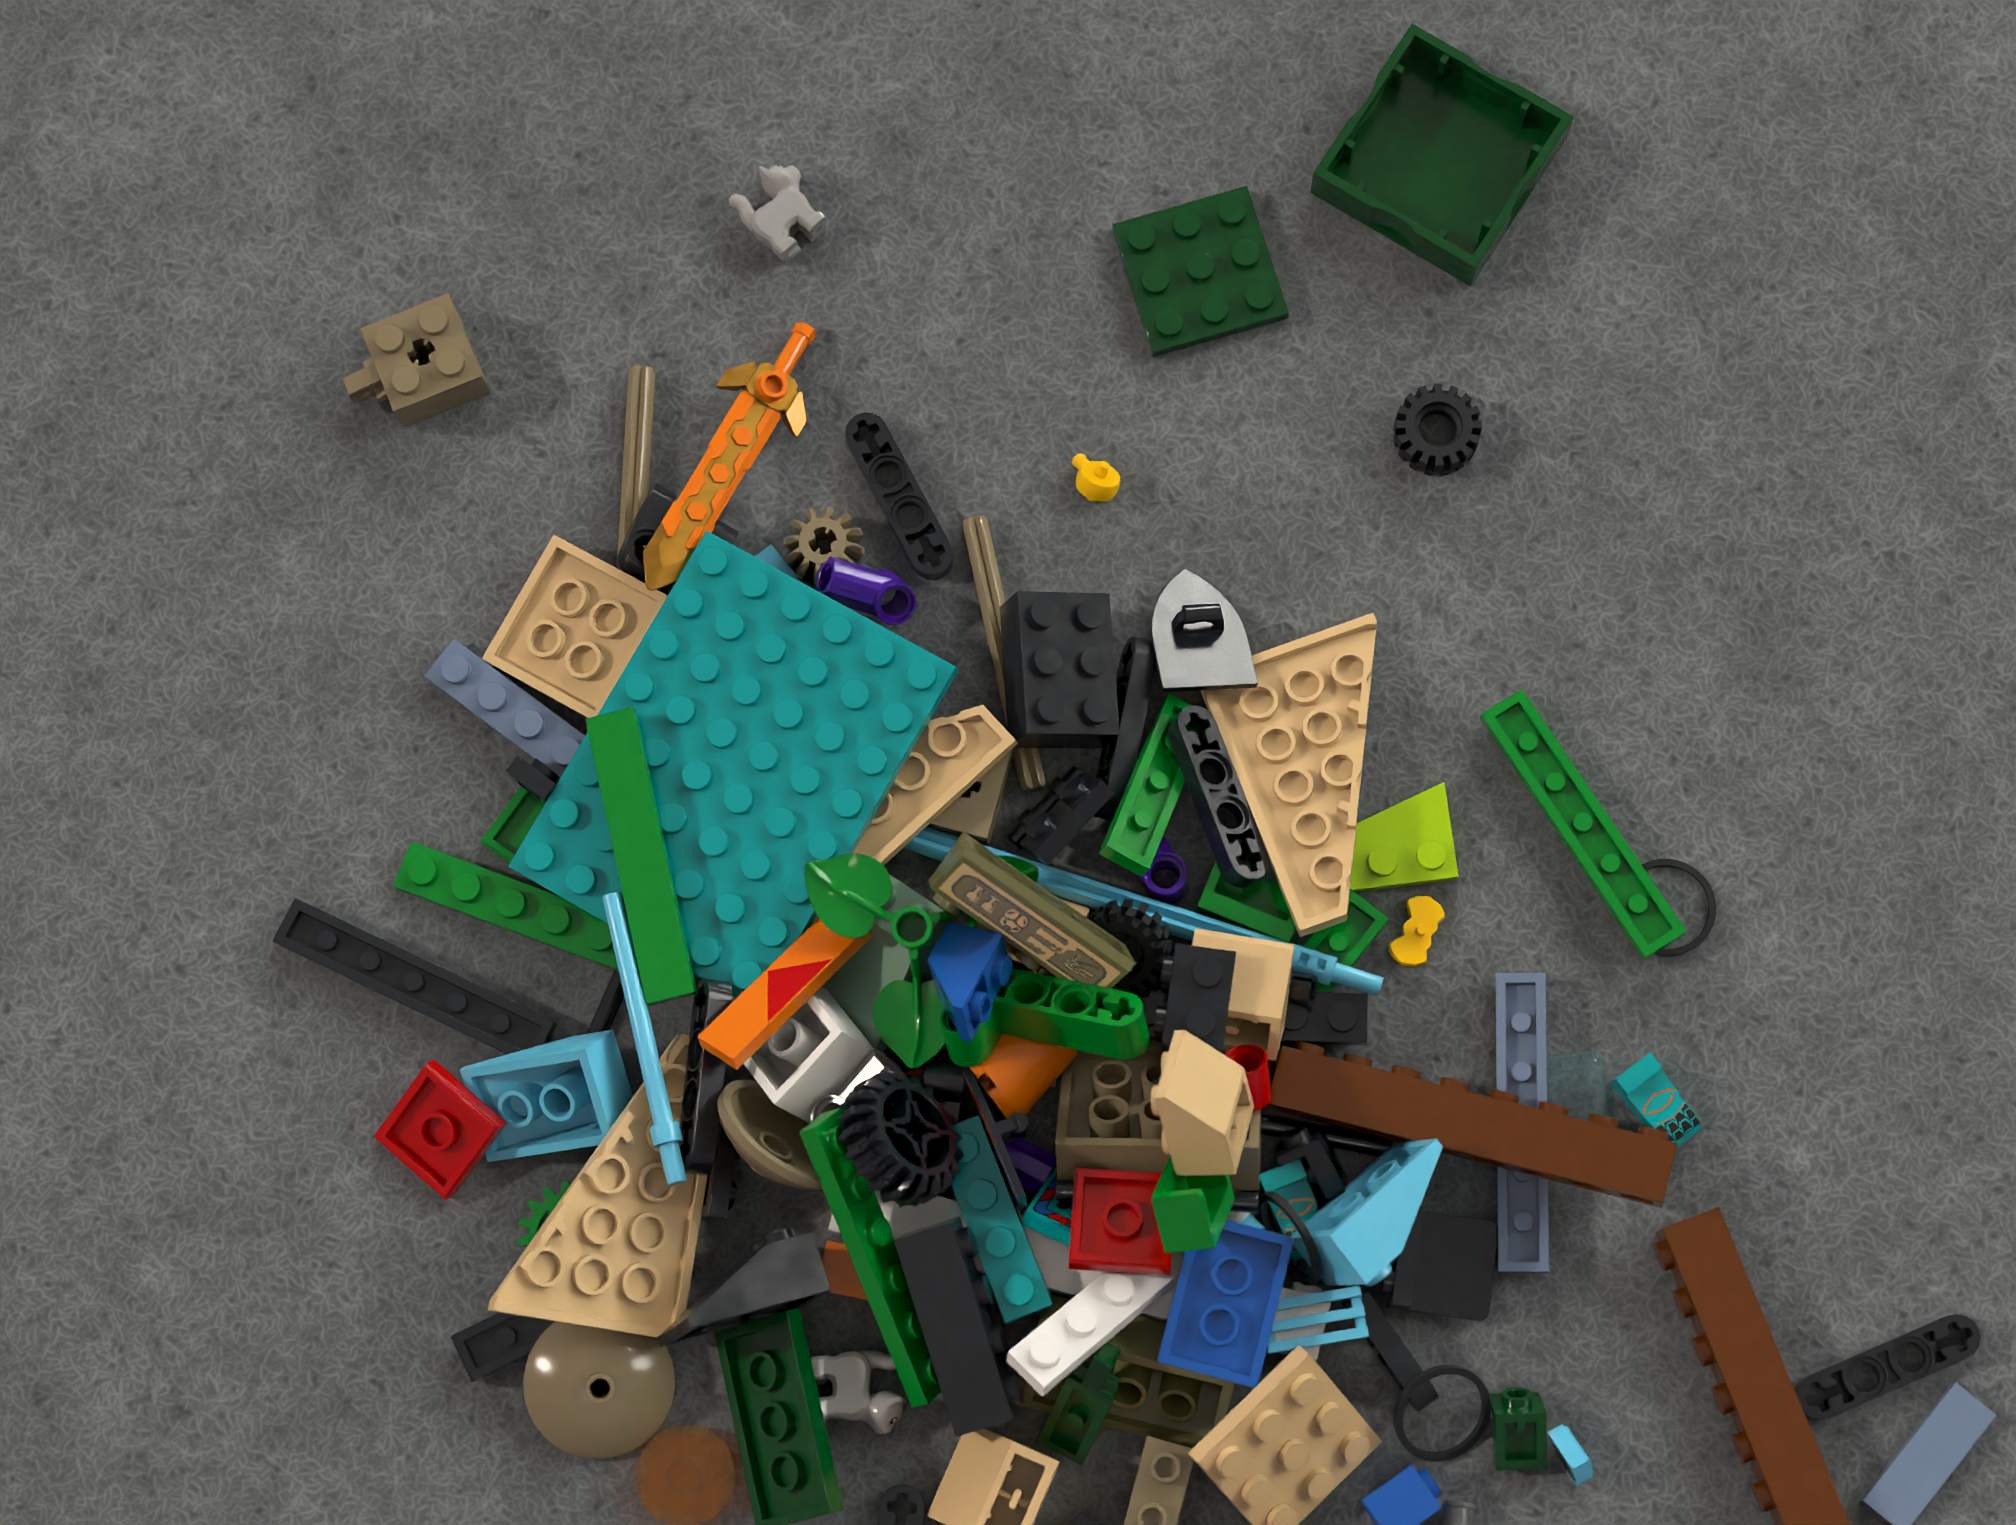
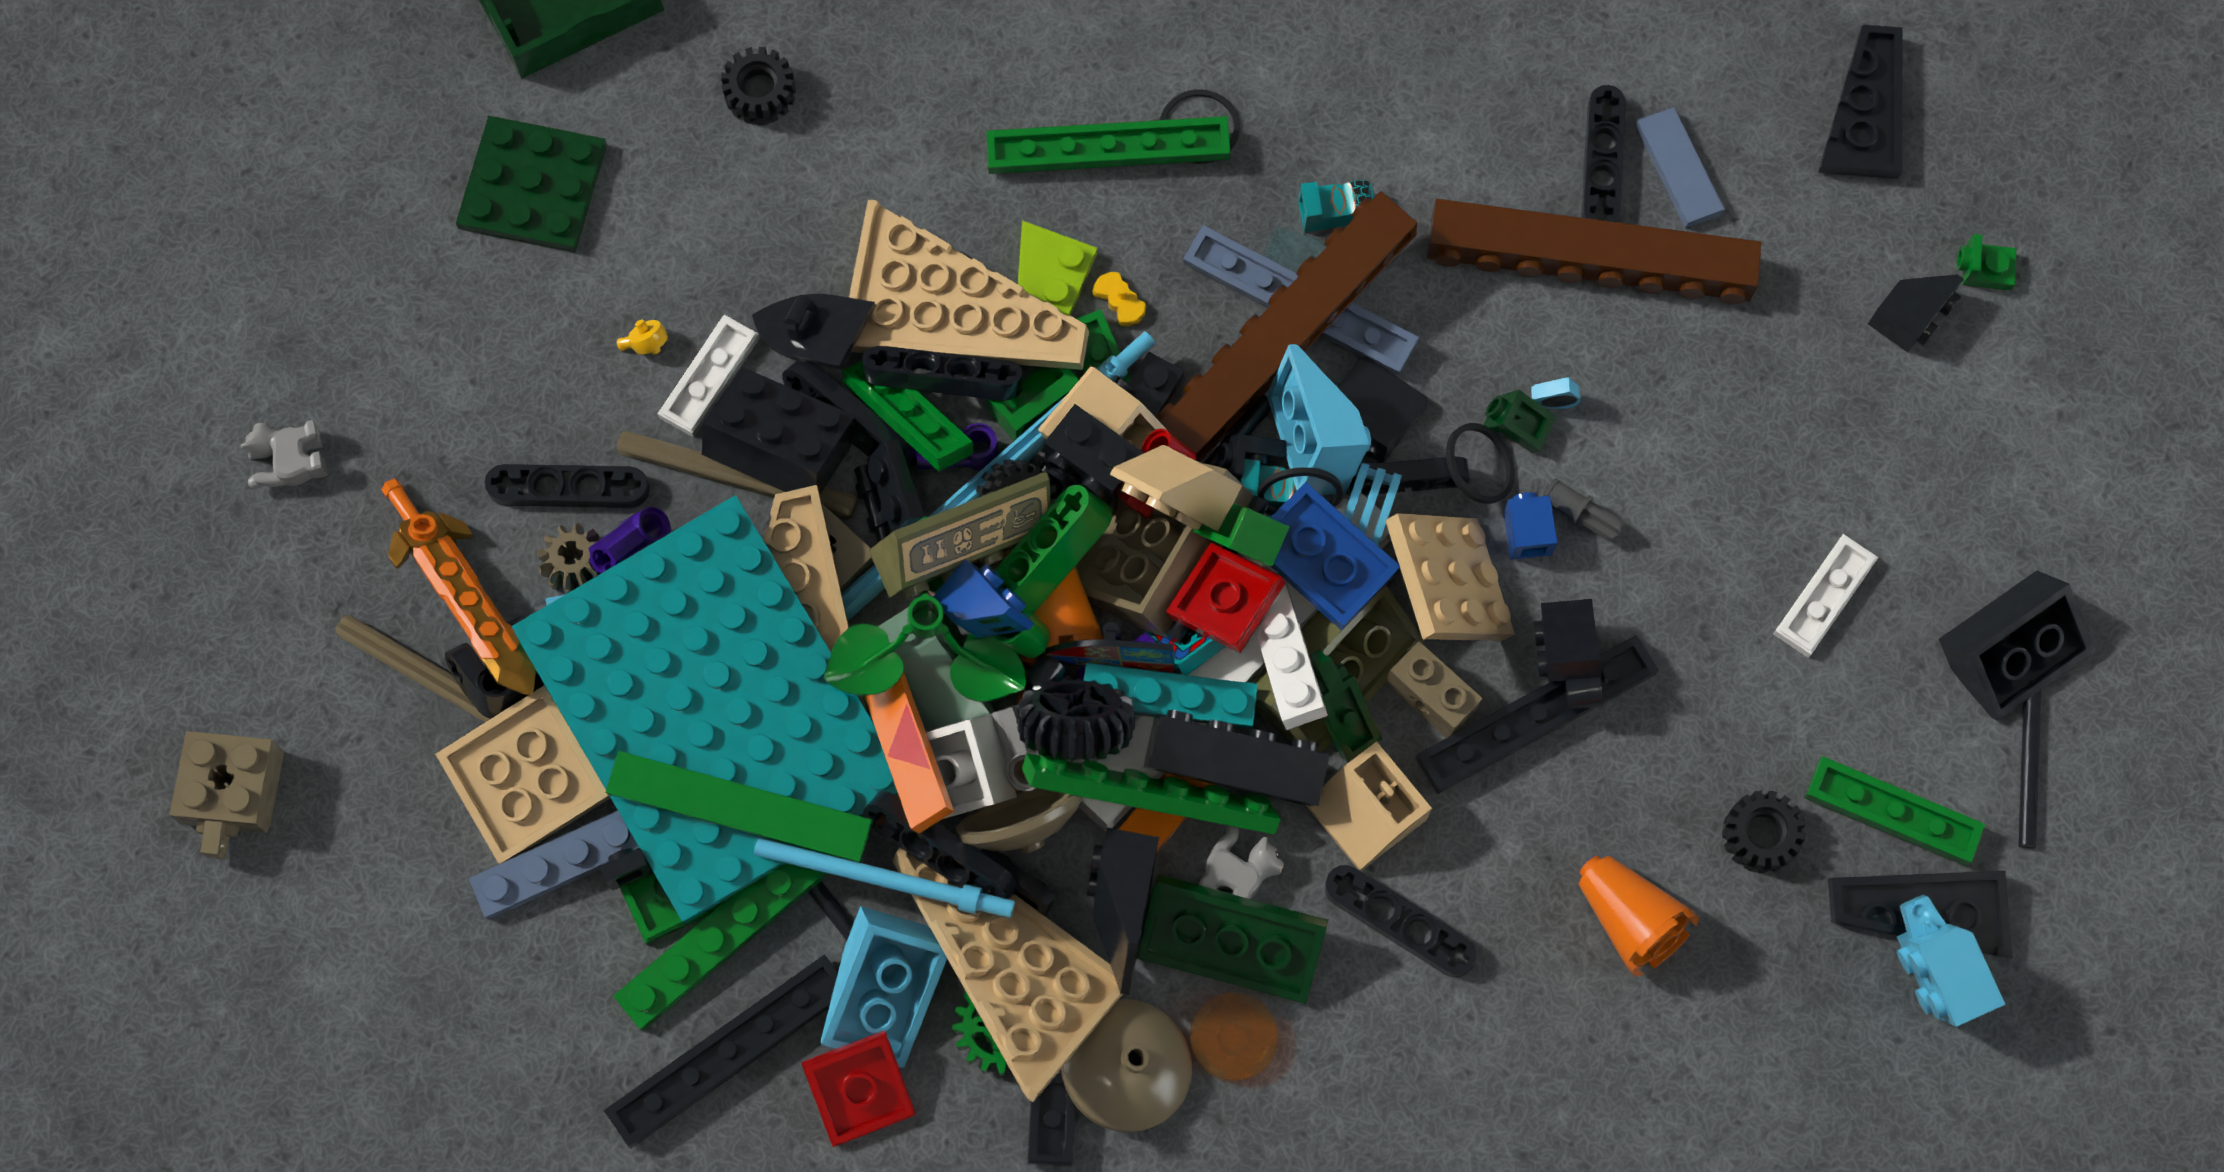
camera: 70 degrees left, 5 degrees down
(1094, 564) = (708, 375): none -> white tile

